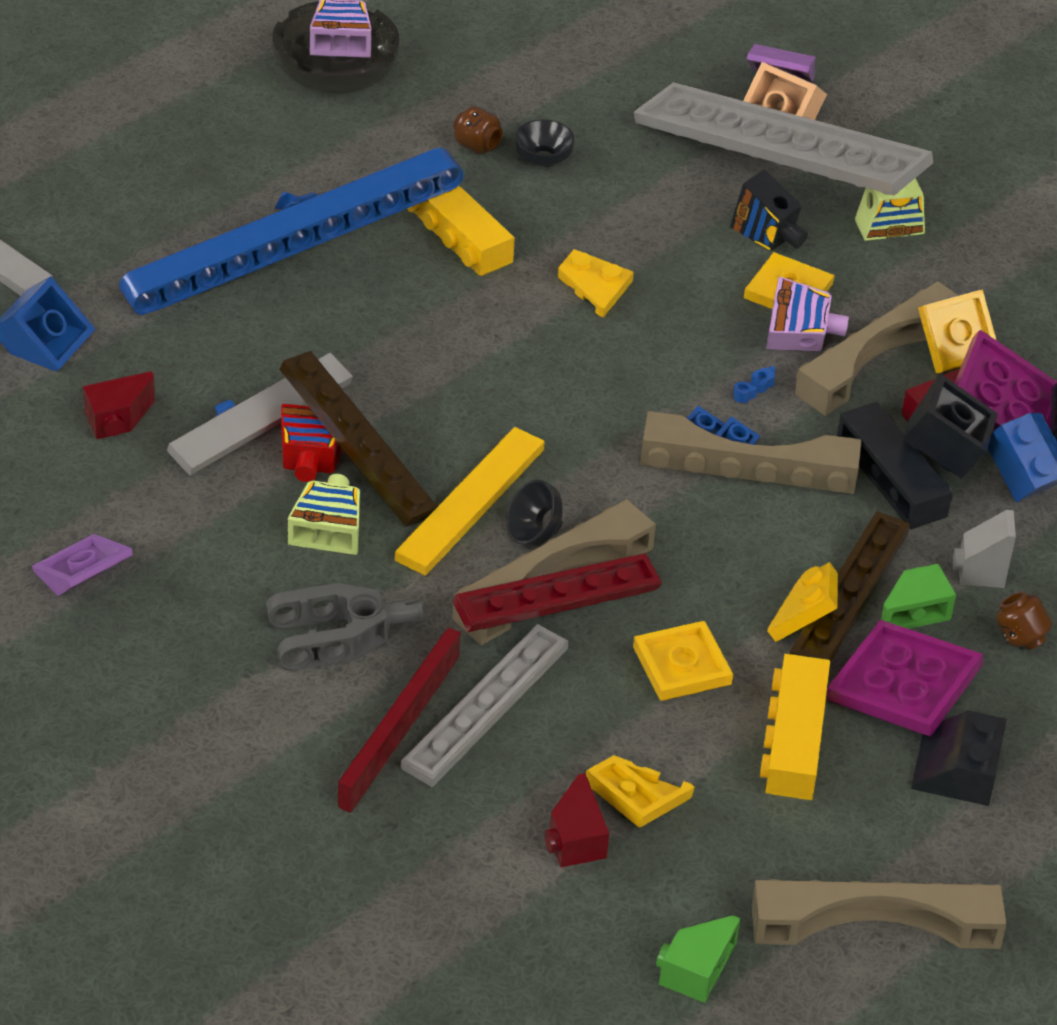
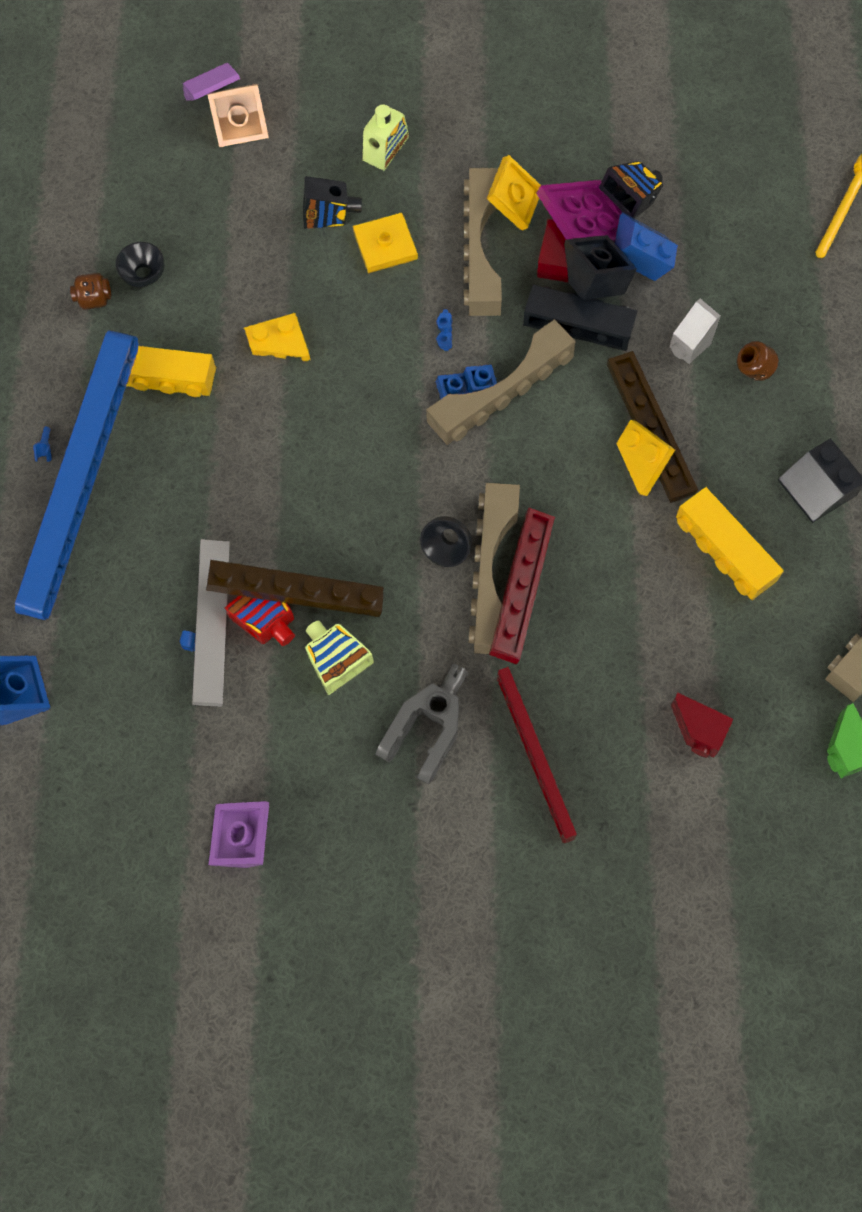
camera: 40 degrees left, 25 degrees up
(118, 404) = (122, 701): dark red slope -> none
(469, 501) = (392, 564): yellow tile -> none
(484, 705) = (560, 696): light grey tile -> none
(636, 790) = (699, 670): yellow wing -> none
(682, 660) = (624, 559): yellow plate -> none
(784, 138) = (284, 142): light grey plate -> none
(802, 318) = (424, 261): lavender torso -> none
(905, 677) = (743, 456): magenta plate -> none
(920, 598) = (689, 396): bright green slope -> none

